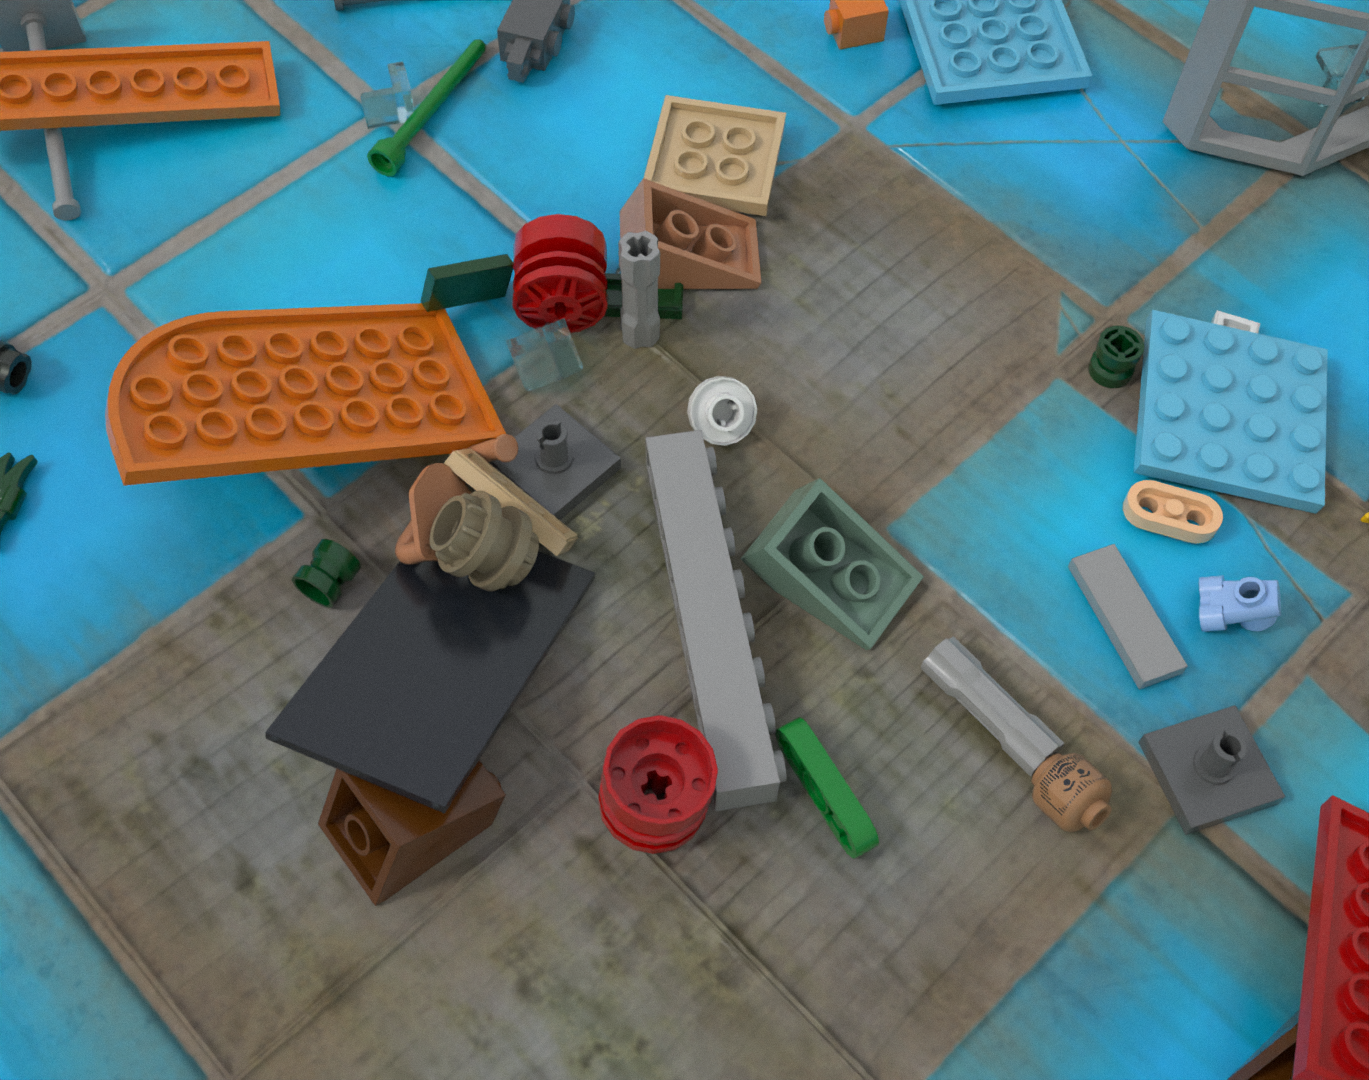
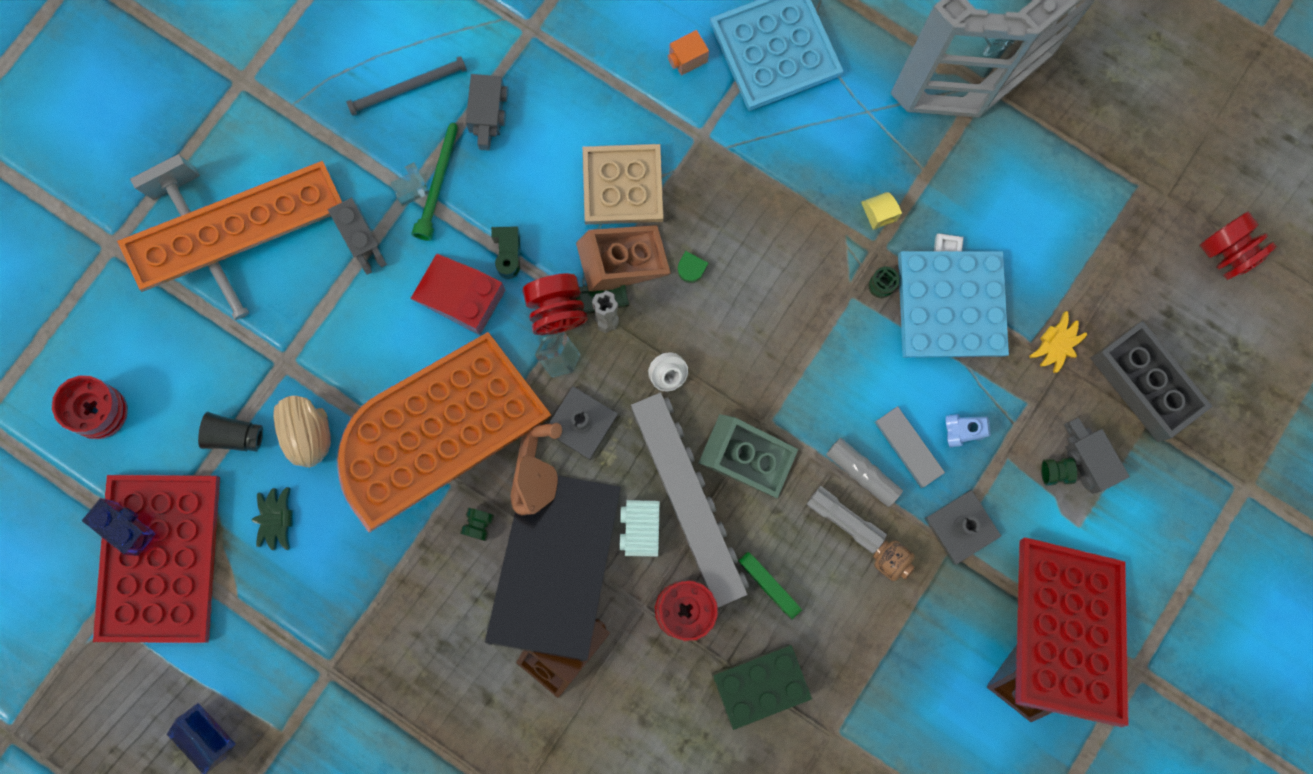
camera: 15 degrees left, 20 degrees up
(81, 365) = (302, 431): none -> tan hair
(283, 129) = (356, 232): none -> dark grey hinge
(409, 237) = (459, 293): none -> red slope
(466, 282) = (500, 319): dark green tile -> none
(484, 541) = (561, 497): dark tan piece -> none
(486, 478) = (566, 460): tan tile -> none
(511, 202) = (508, 260): none -> dark green leg
(611, 641) = (641, 528): none -> light aqua brick
(771, 962) = (761, 686): none -> dark green brick
(797, 283) = (691, 267): none -> green tile
(1038, 635) = (864, 472): none -> light grey axle
(1127, 263) = (881, 210): none -> light yellow brick
(1171, 510) = (925, 378): light nougat plate -> none

